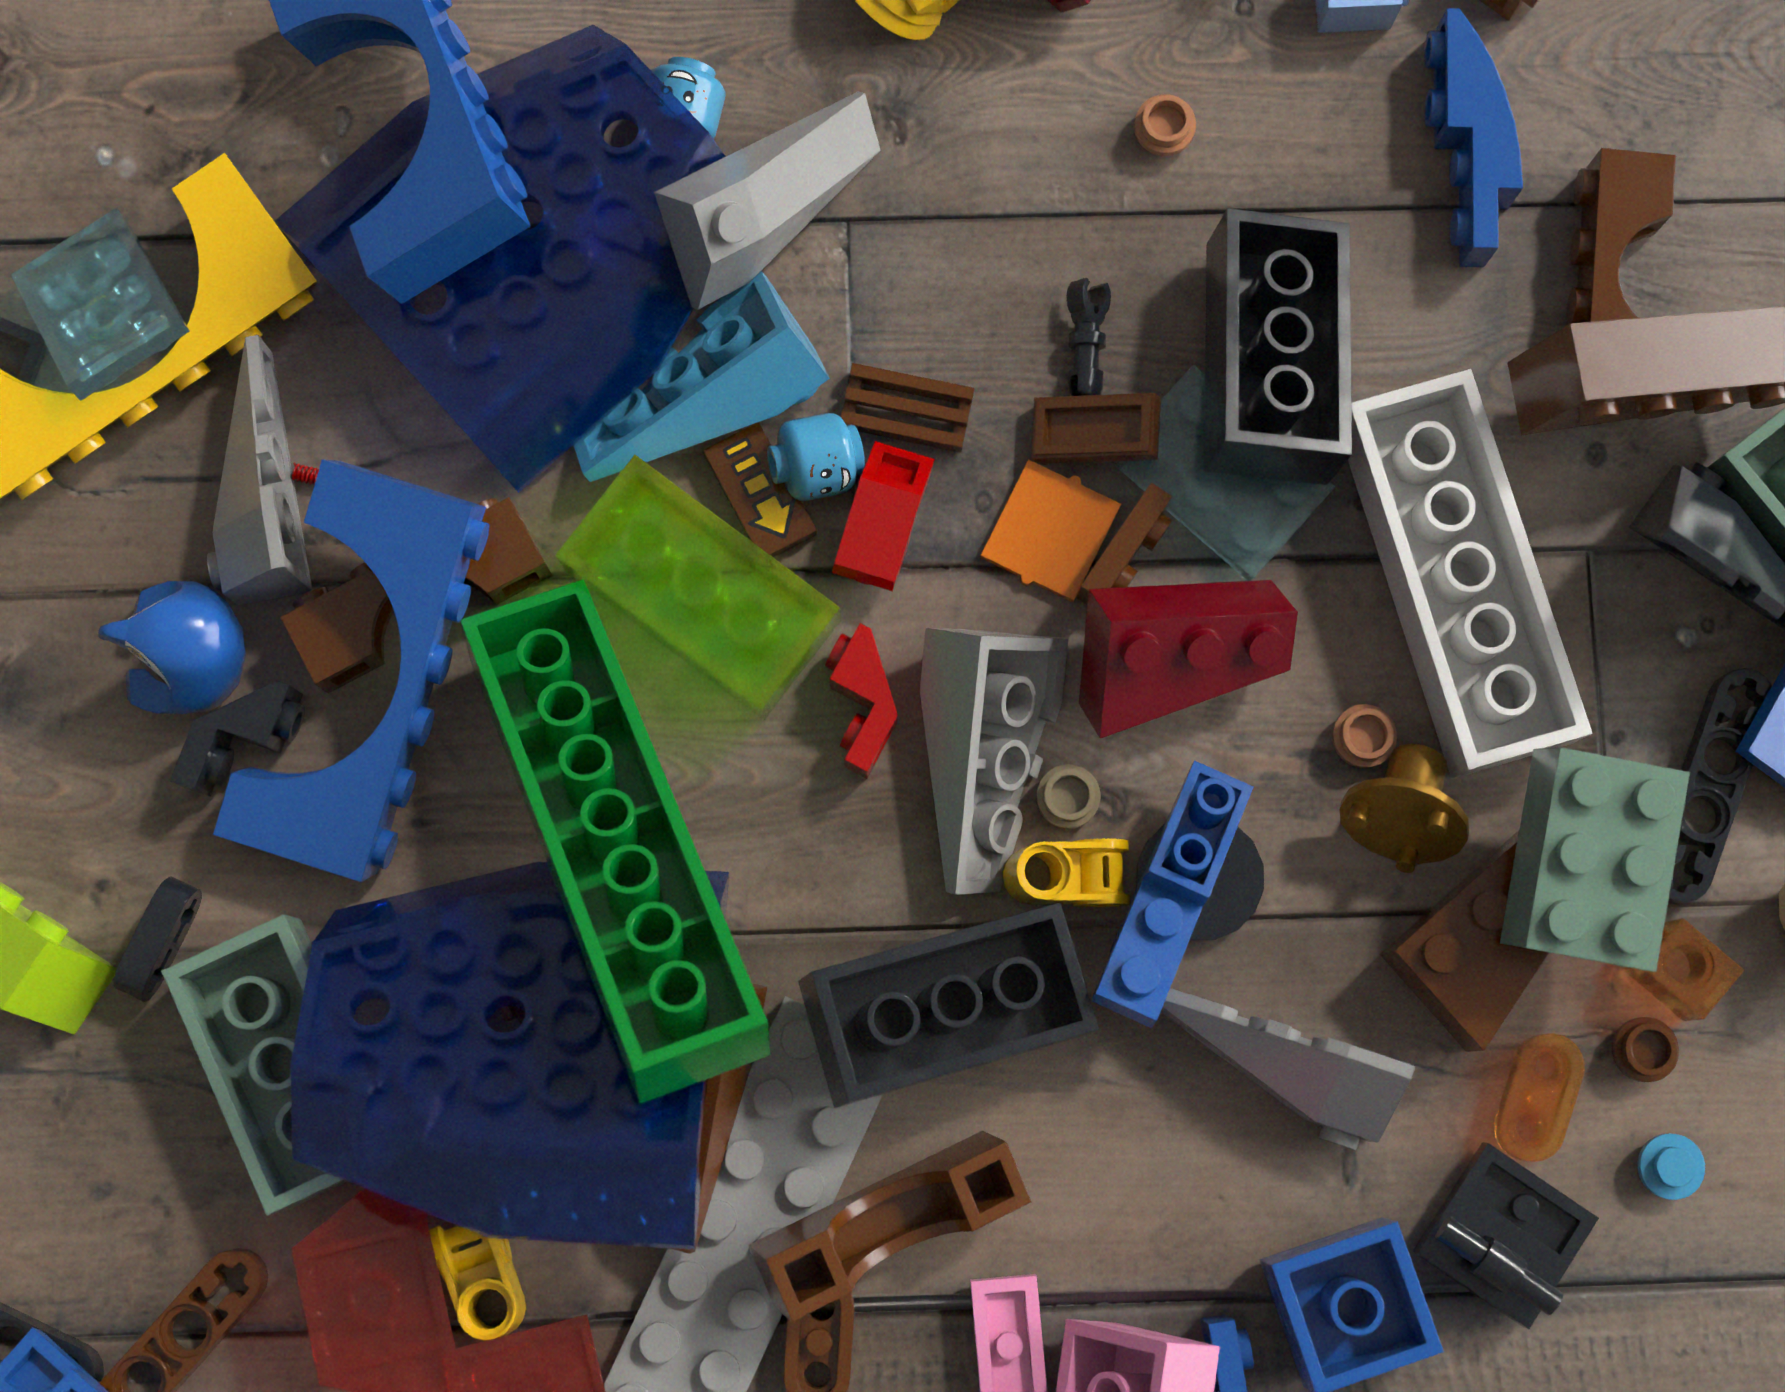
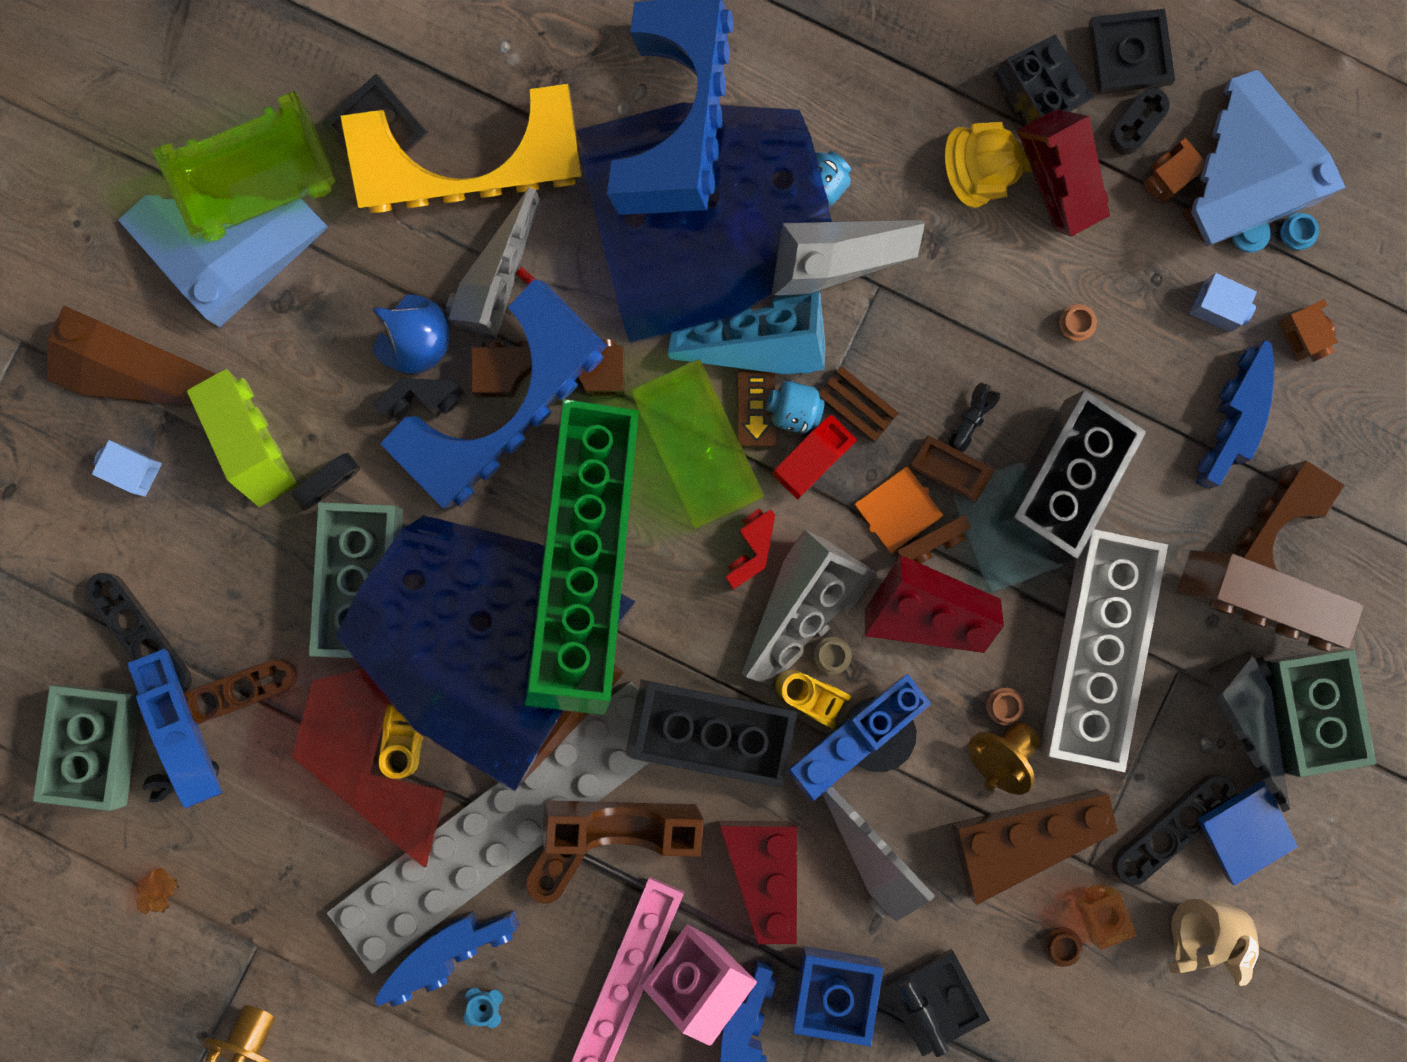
camera: 30 degrees right, 5 degrees up
(99, 304) = (461, 129): clear light blue plate -> none
(1148, 1179) = (767, 875): none -> dark red wedge
(1542, 1099) = (995, 944): clear orange plate -> none
(1595, 858) = (1088, 840): sand green brick -> none
(1671, 1166) = (1042, 1013): dark azure plate -> none

